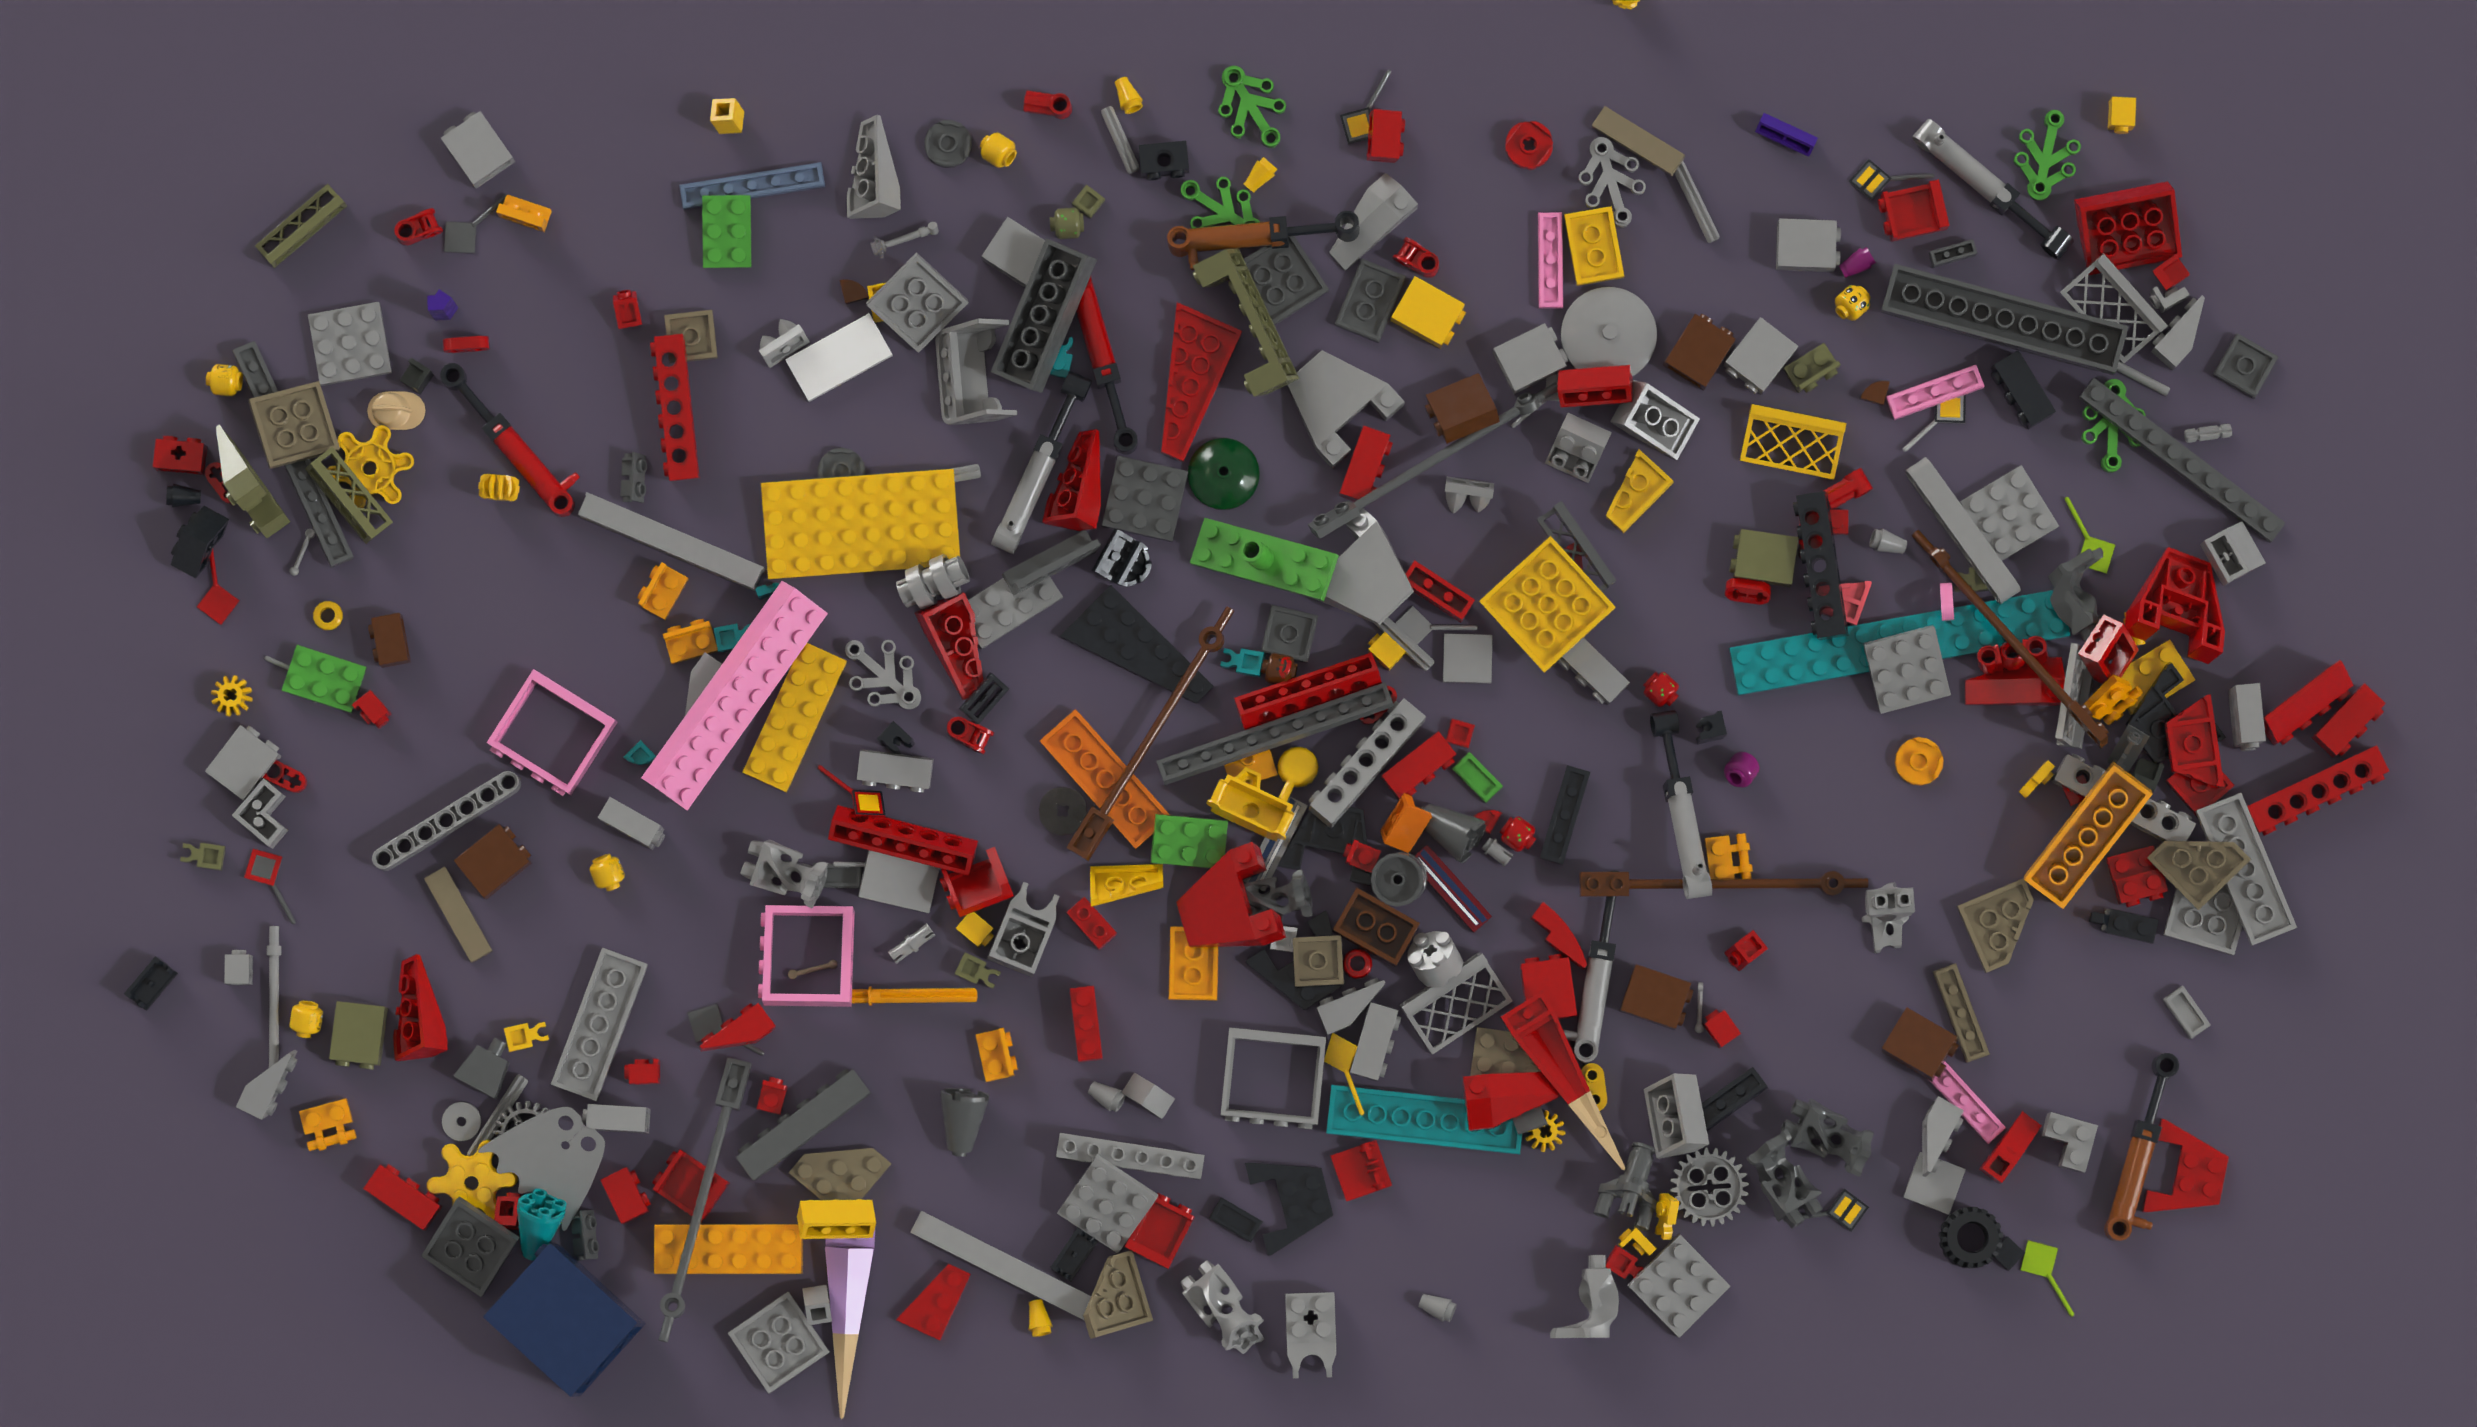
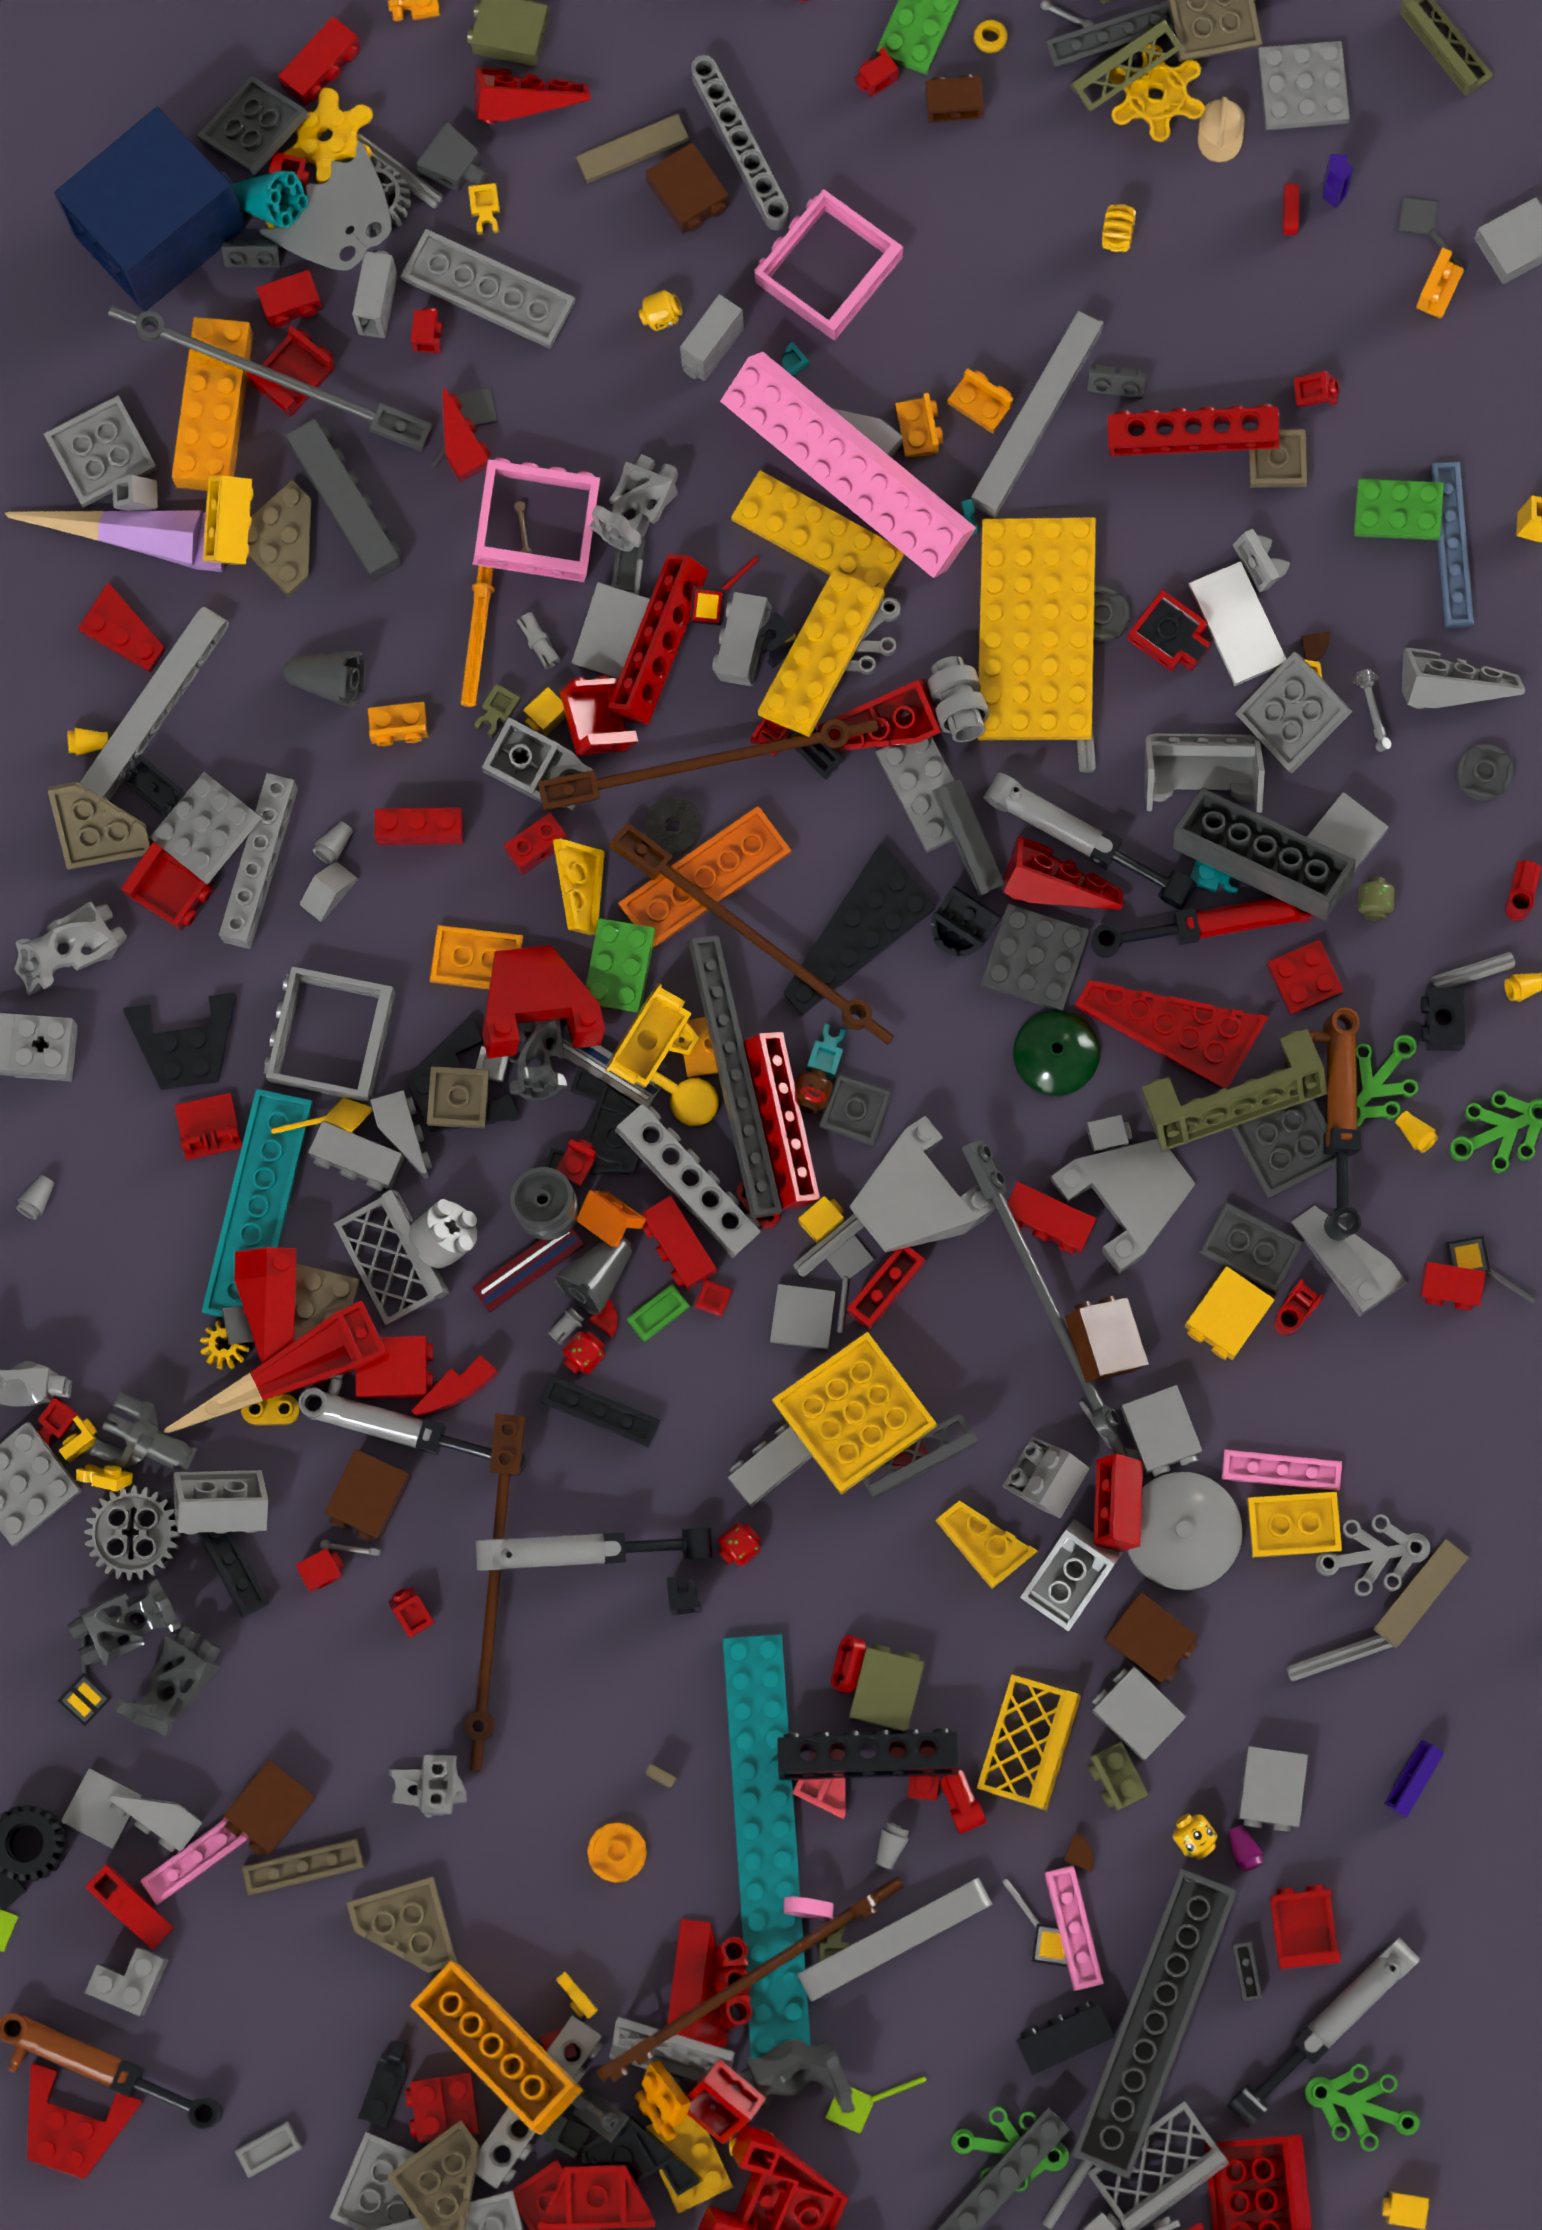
camera: 105 degrees right, 5 degrees down
(416, 376) = (1258, 153): pearl dark grey panel -> none
(419, 226) = (1435, 171): red piece -> none
(472, 1117) = (398, 121): light grey piece -> none
(515, 448) = (1183, 239): red piece -> none
(728, 636) = (919, 466): teal plate -> none
(772, 1096) = (382, 470): red bracket -> none
(855, 411) = (1170, 633): none -> piece
(903, 700) = (821, 653): none -> yellow plate
(998, 150) = (1471, 827): yellow head -> none
(1042, 884) = (584, 786): none -> reddish brown bar
(1088, 201) = (1400, 928): olive tile -> none
(1139, 276) = (1305, 977): none -> red plate
(1235, 1219) = (171, 976): black tile -> none
(1264, 559) = (944, 1084): bright green plate -> none
(1290, 423) = (1108, 1134): none -> light grey brick
(1357, 953) = (446, 1137): red piece -> none
(1376, 927) = (489, 1170): reddish brown brick -> none
(1459, 488) = (1010, 1329): light grey tile -> none
(1542, 142) = (1426, 1442): red plate -> none
(1720, 857) = (525, 1593): light orange plate -> none
(1741, 769) = (629, 1629): magenta head -> none
(1855, 731) = (661, 1776): none -> dark tan tile
(1872, 179) = (1349, 1881): piece -> none
(1906, 669) = (730, 1848): light grey plate -> none
(2010, 513) = (911, 2003): light grey plate -> none

